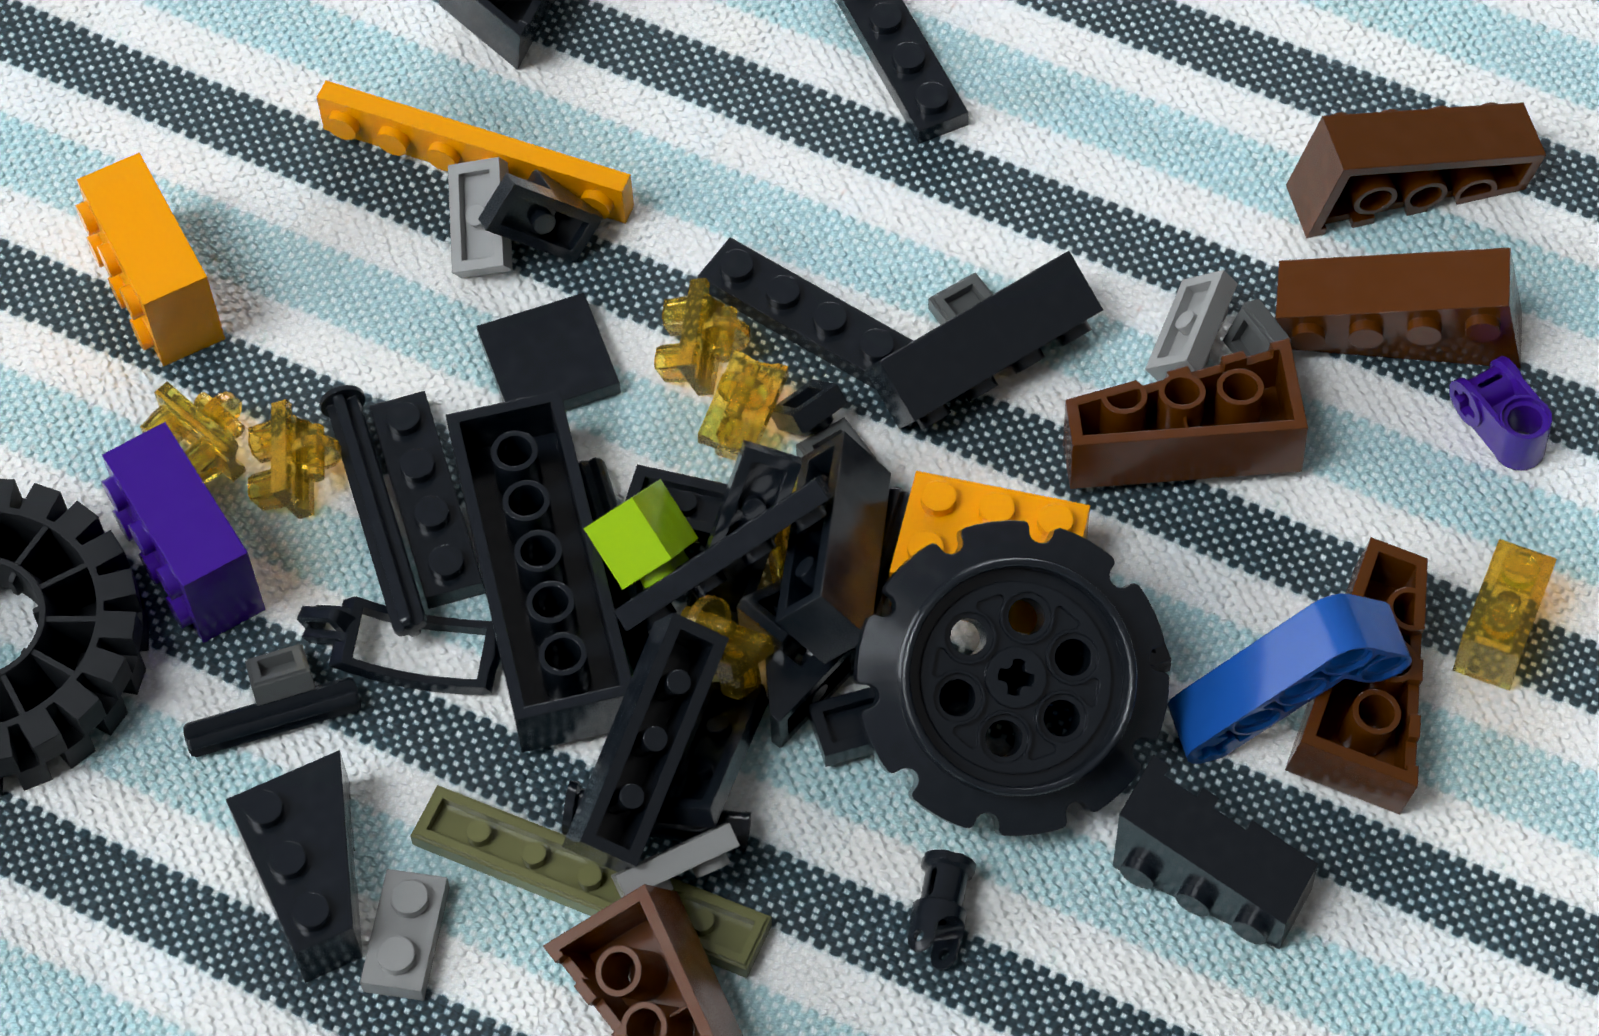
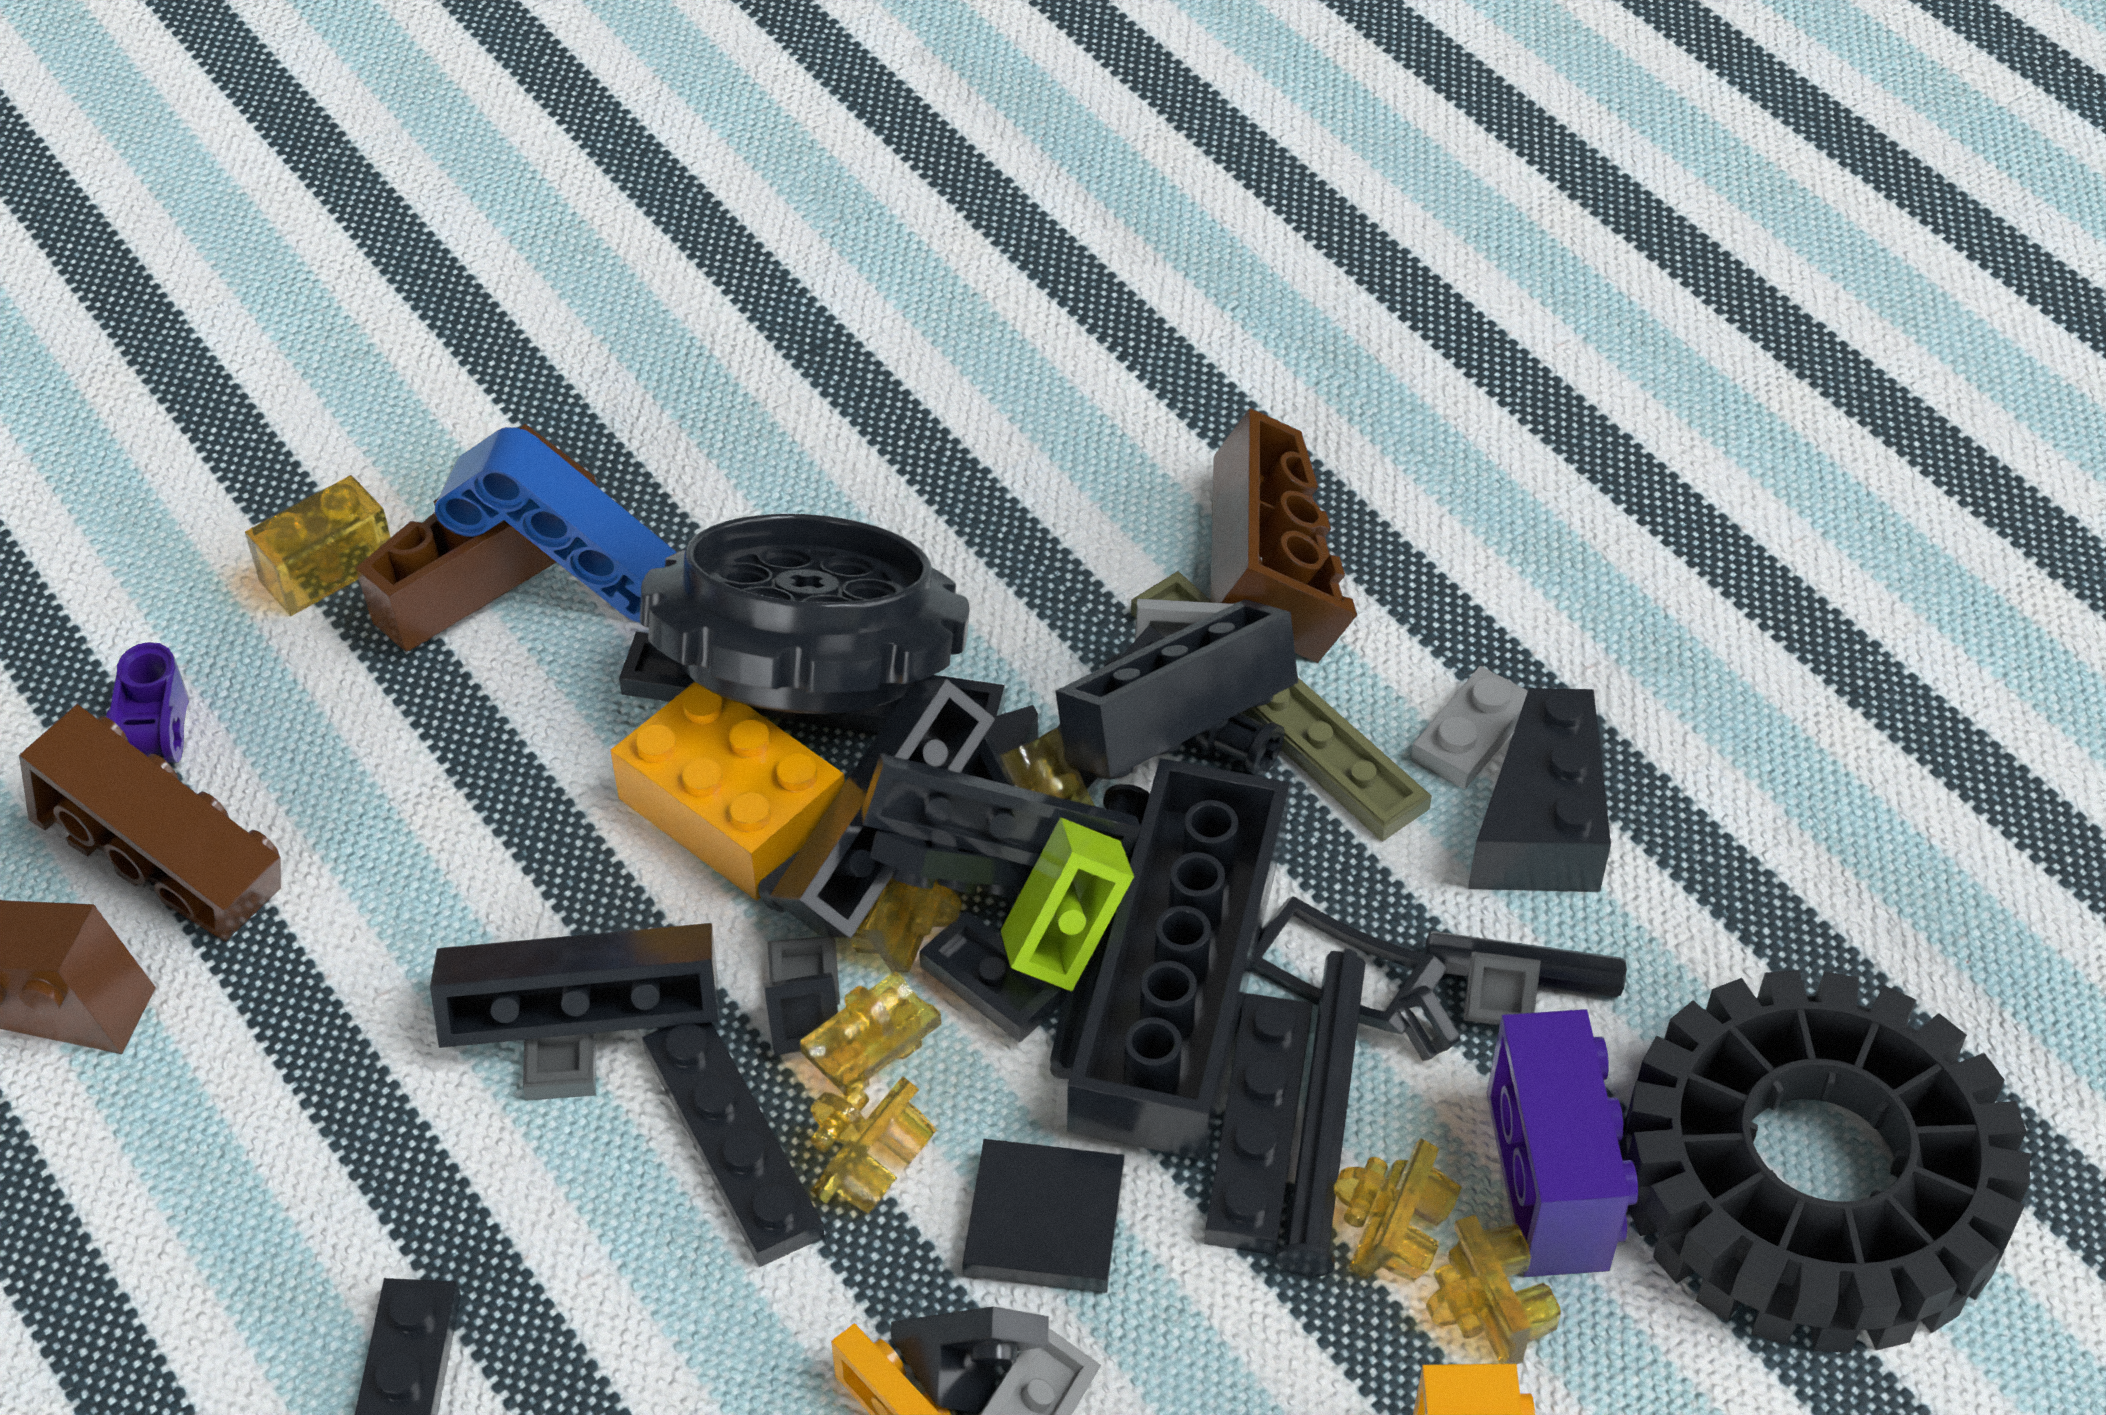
camera: 155 degrees left, 10 degrees down
(940, 907) = (986, 536): black piece -> none
(1191, 425) = (442, 808): reddish brown wedge -> none
(1192, 324) = (357, 919): light grey plate -> none
(1209, 860) = (727, 461): black wedge -> none
(1253, 329) = (309, 873): dark grey tile -> none

